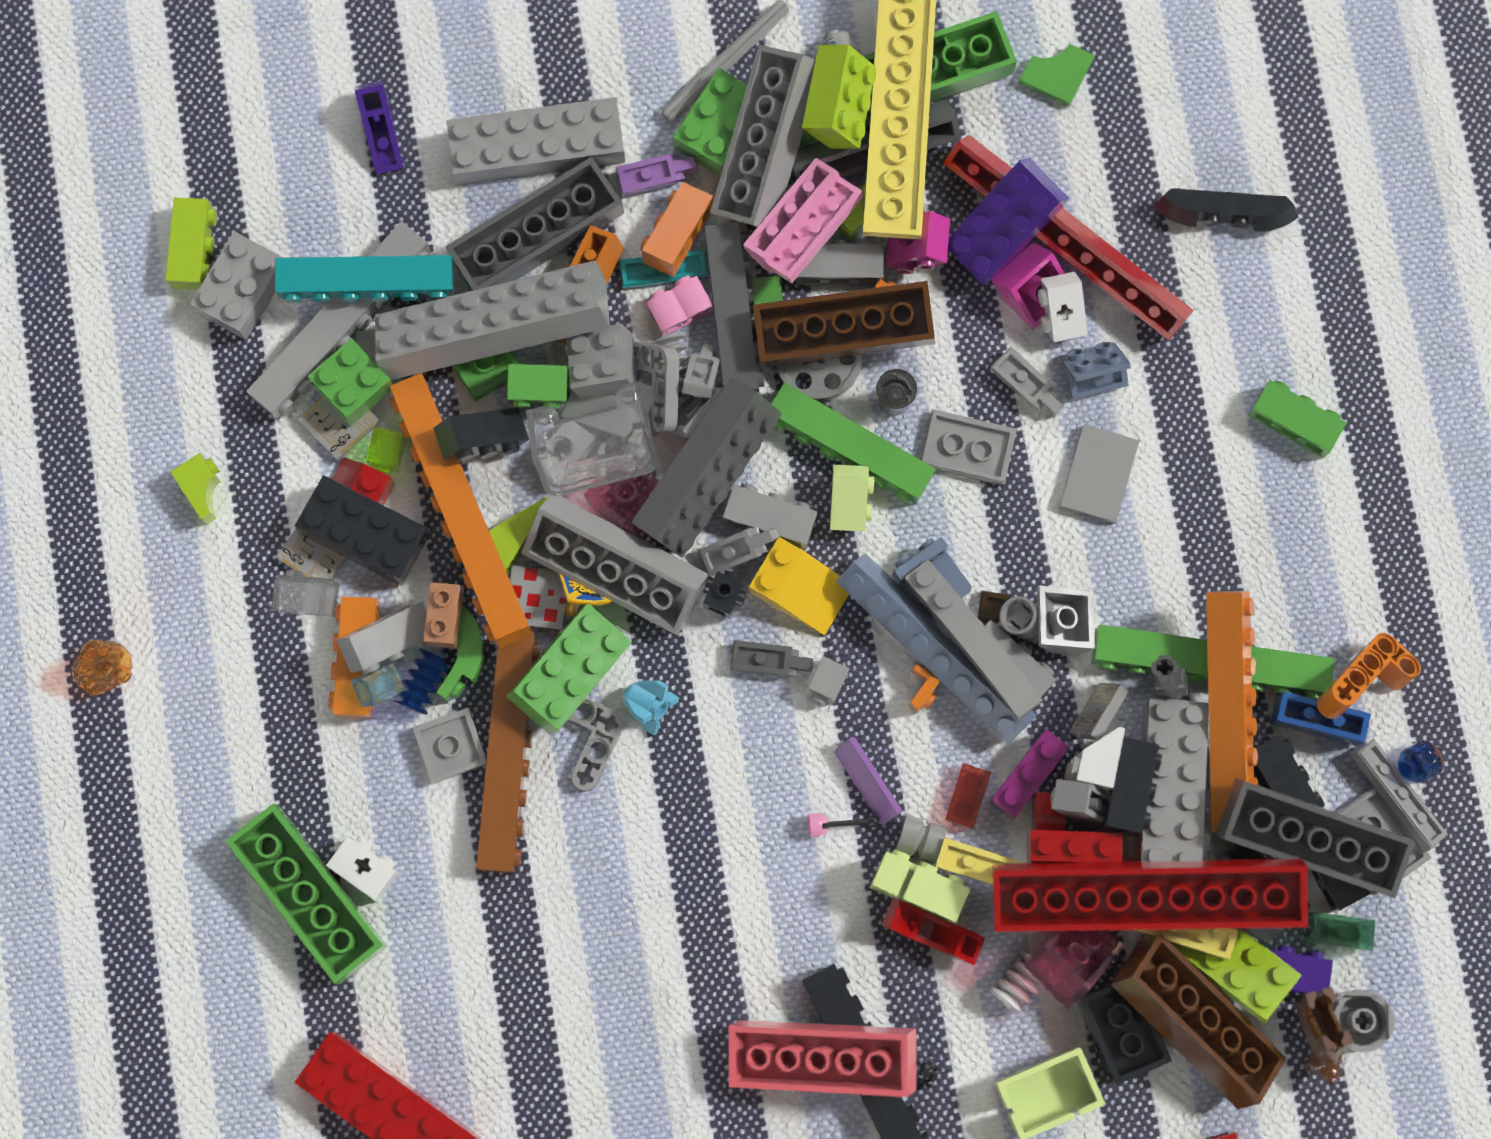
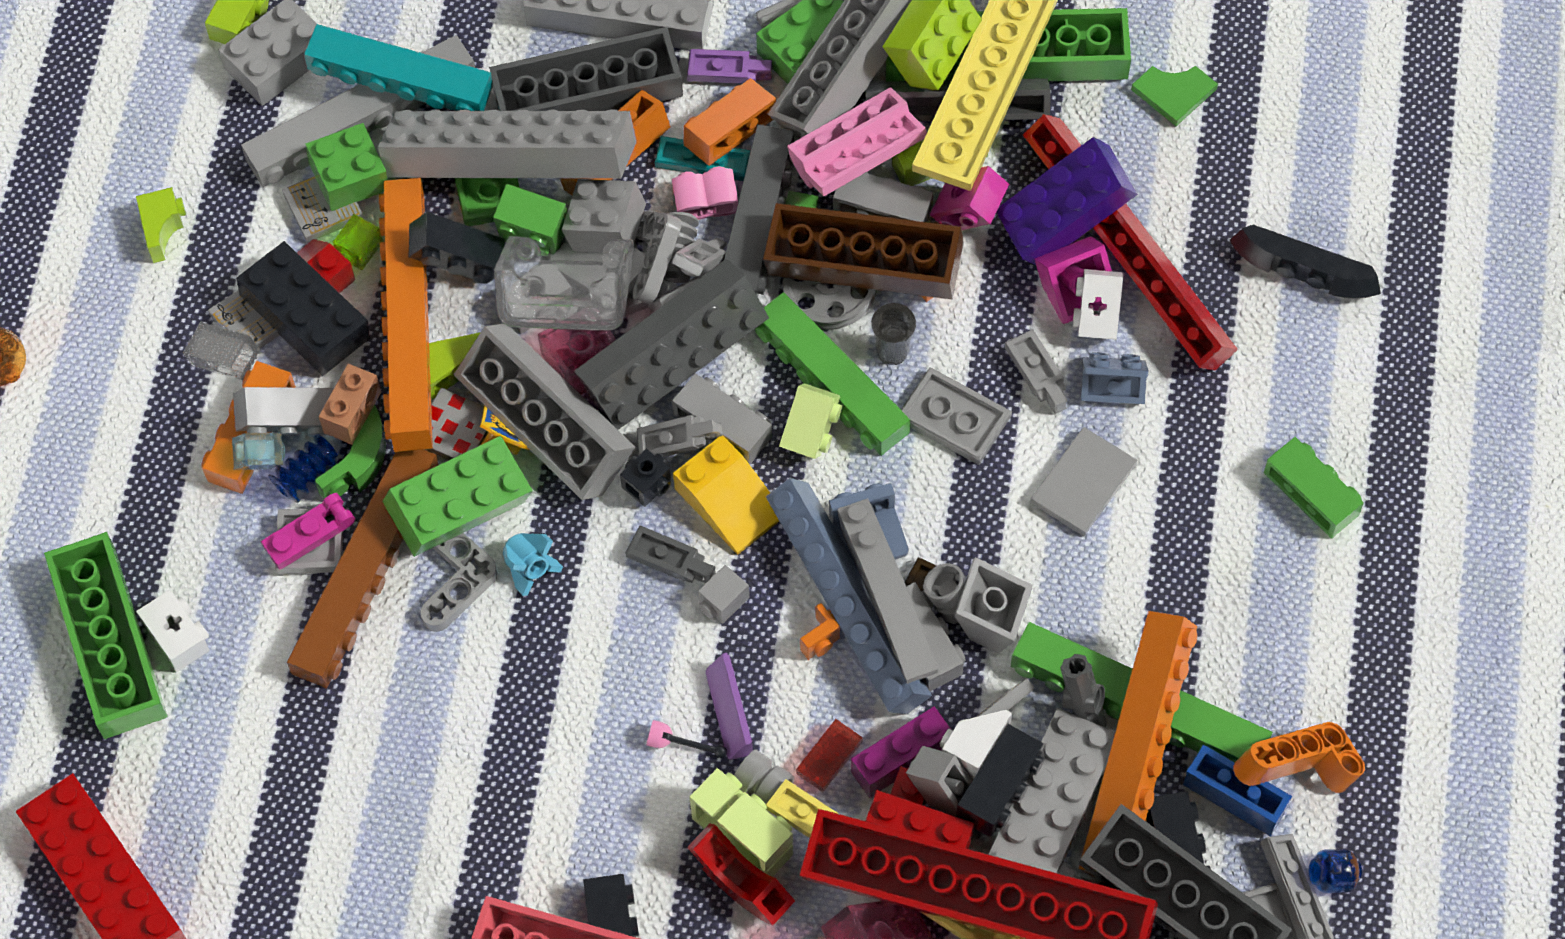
camera: 20 degrees right, 15 degrees down
(447, 742) = (308, 531): none -> dark pink plate

